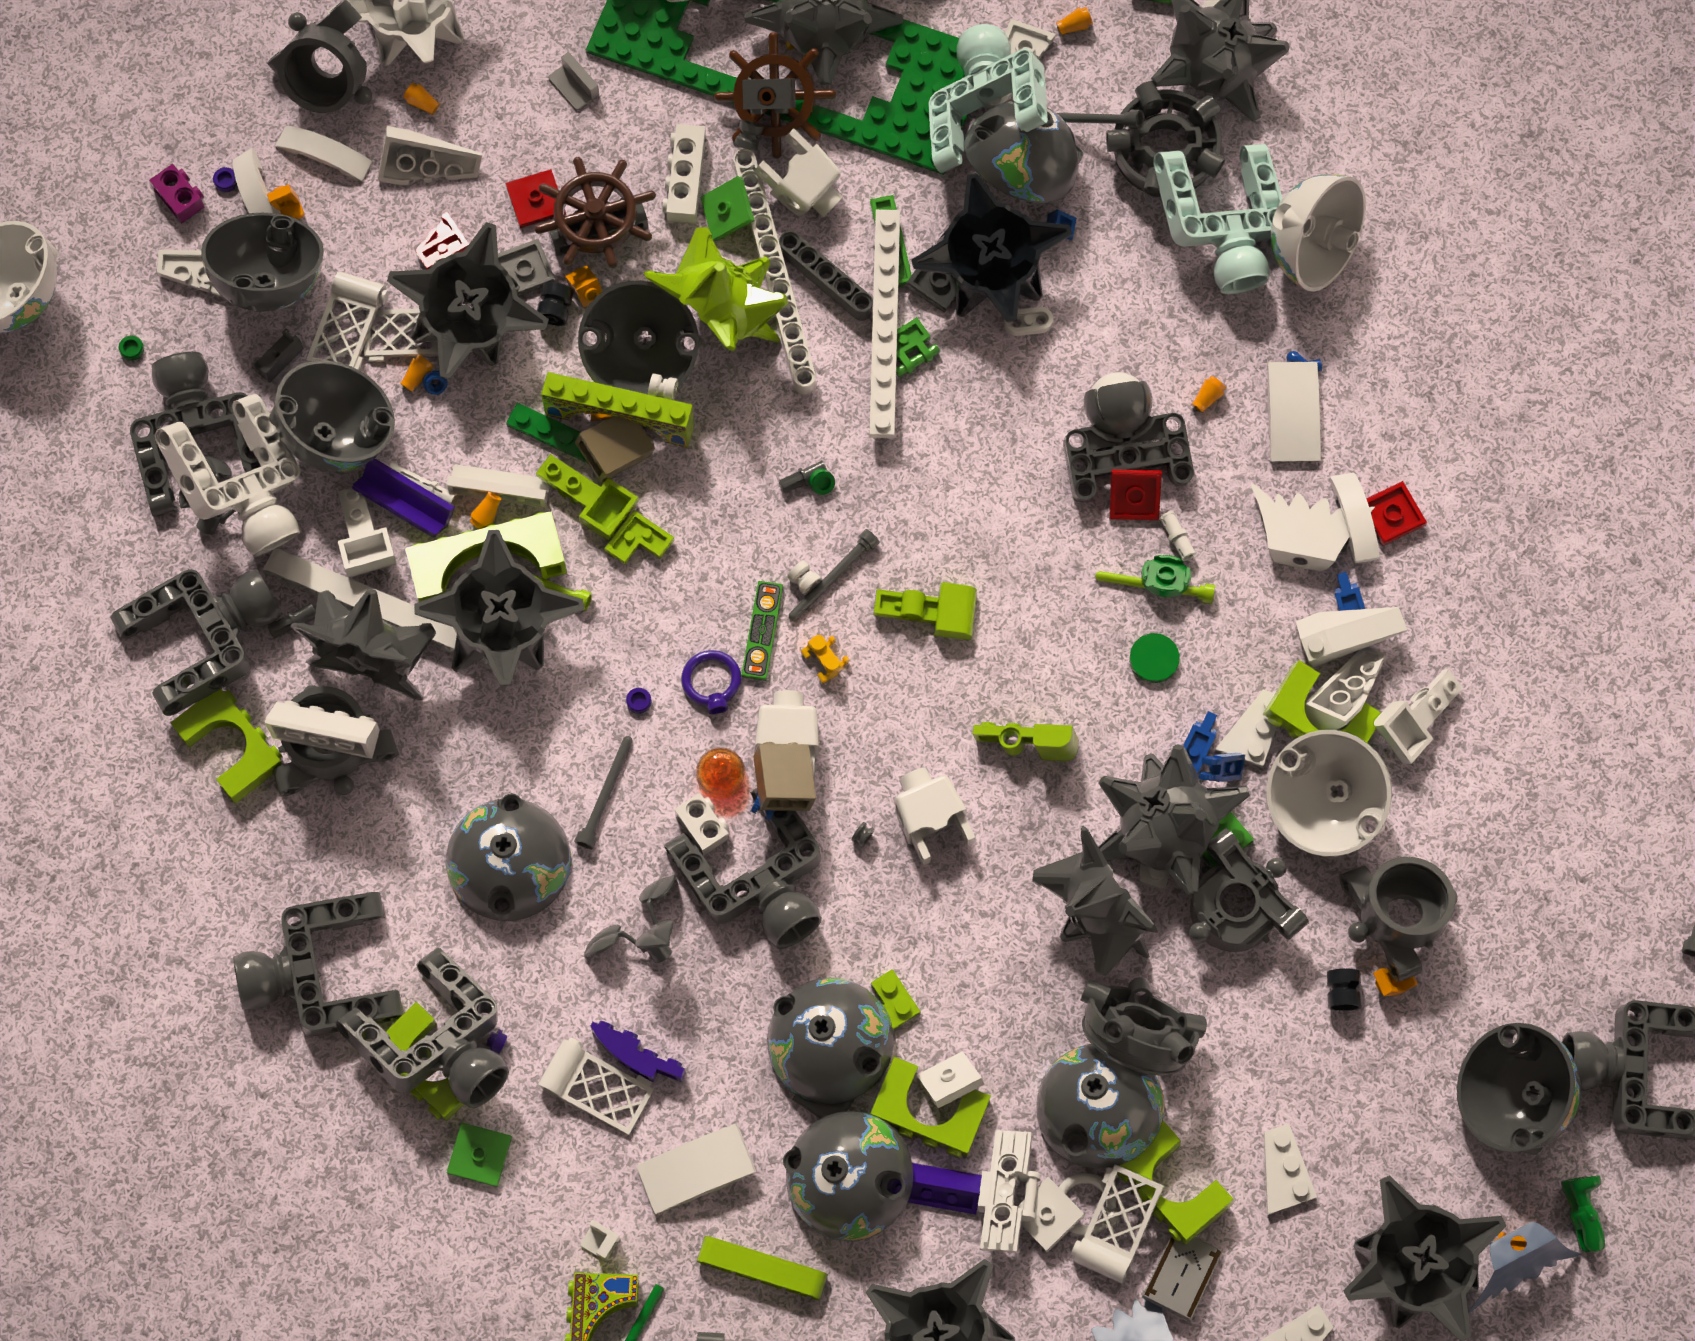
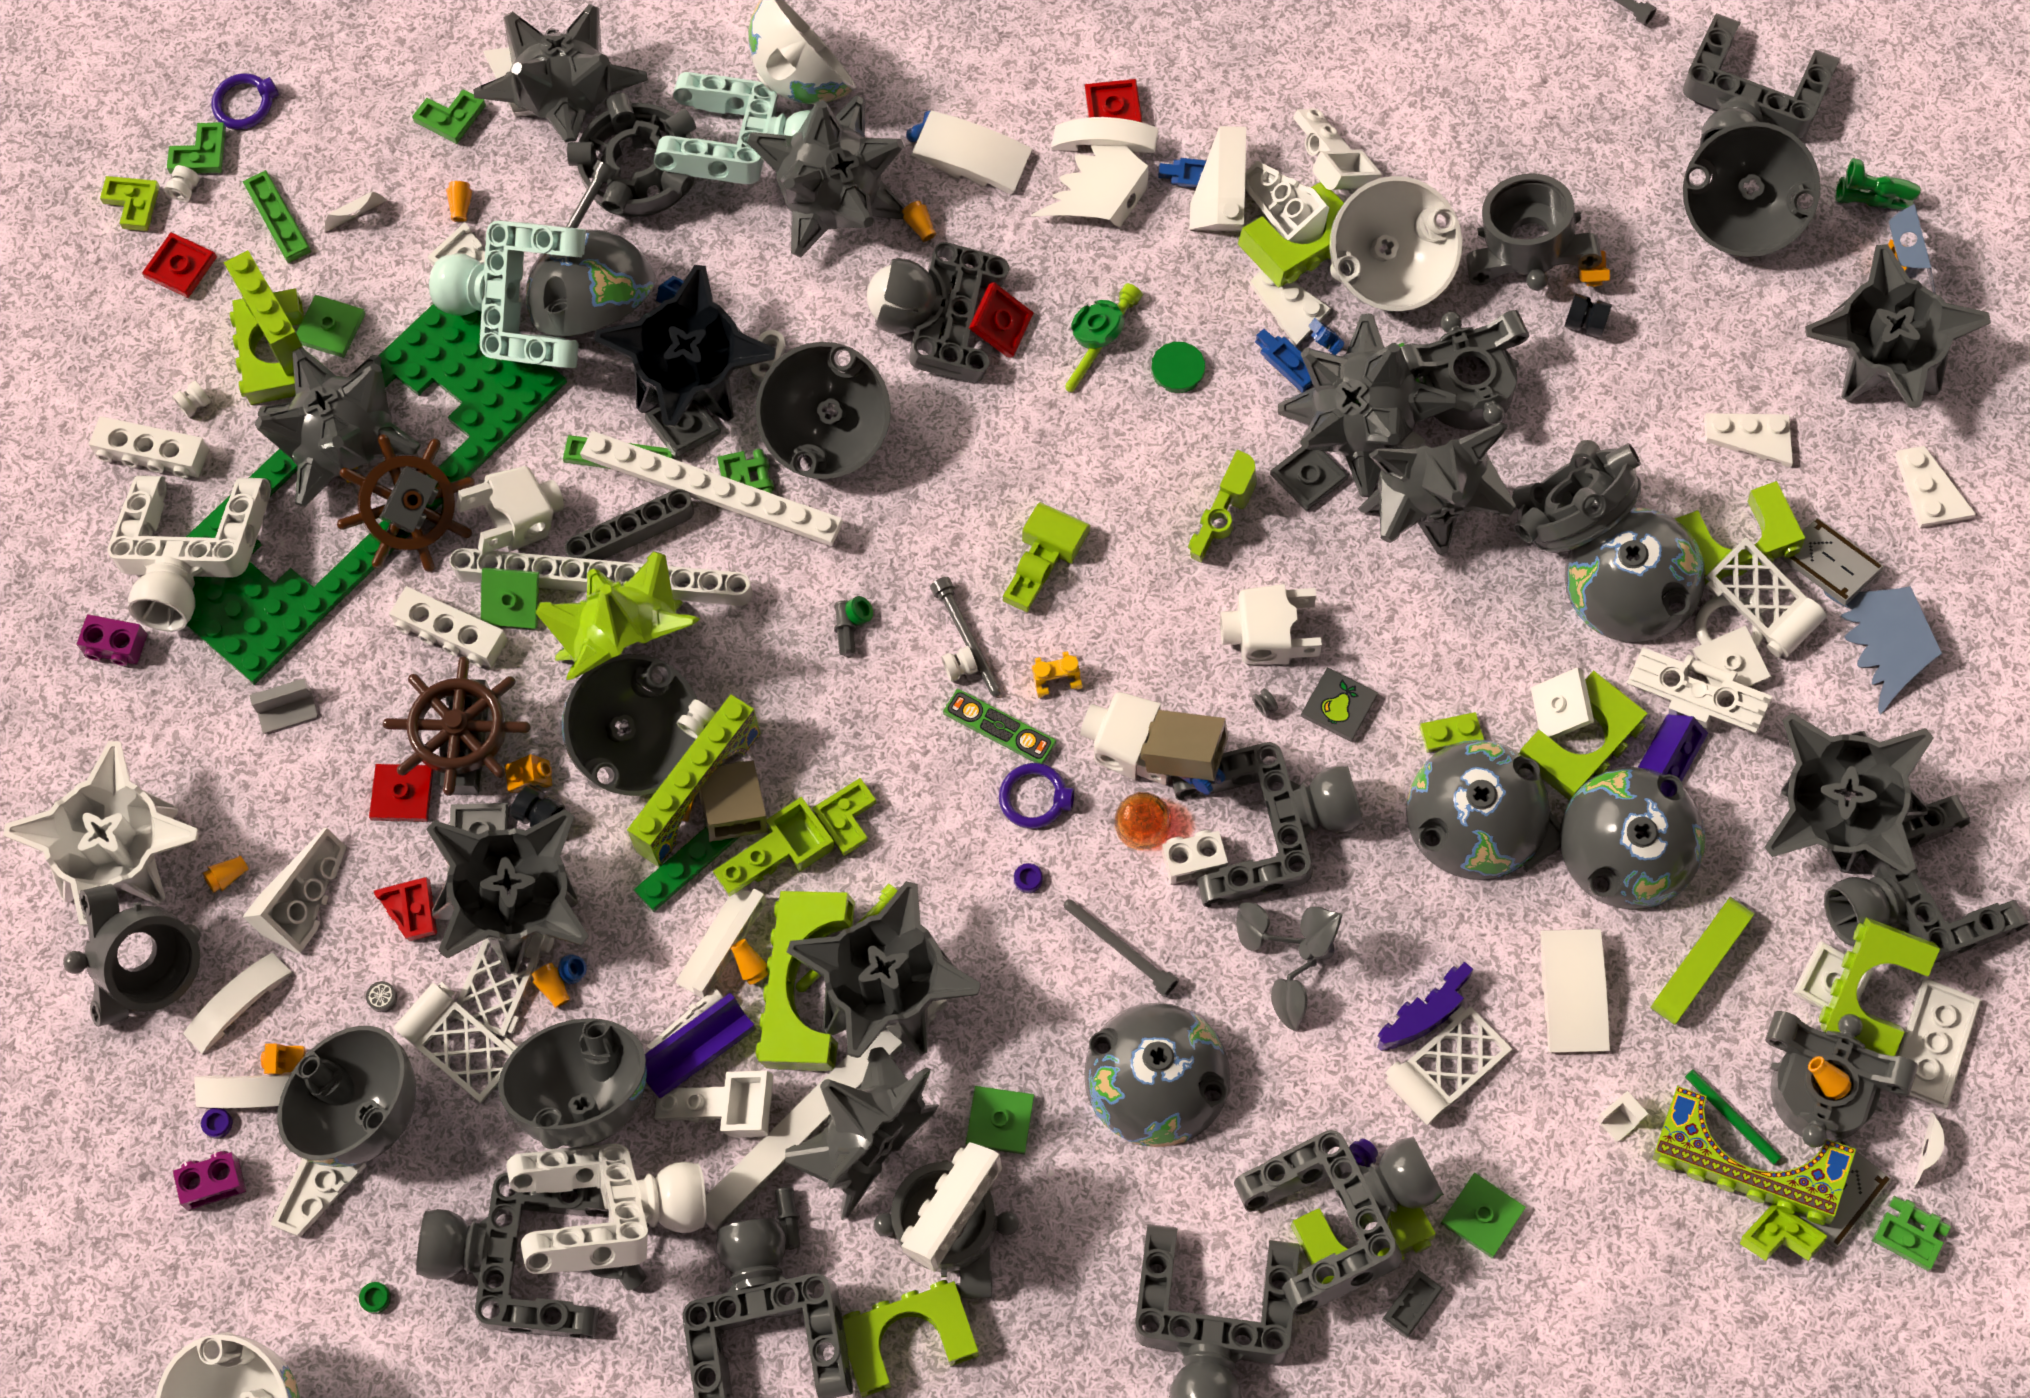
camera: 65 degrees left, 5 degrees down
(278, 356) = (461, 1132): dark grey hinge -> none
(364, 254) = (381, 996): none -> dark grey tile
(385, 1120) = (1412, 1304): none -> dark grey plate
(427, 751) = (1000, 1119): none -> bright green plate
(748, 137) = (438, 547): dark grey wheel -> none
(886, 897) = (1339, 704): none -> dark grey tile
(988, 380) = (795, 403): none -> dark grey piece
(1089, 803) = (1308, 476): none -> dark grey tile
(1177, 536) = (1058, 300): white pin -> none
(1231, 311) = (831, 172): none -> dark grey piece

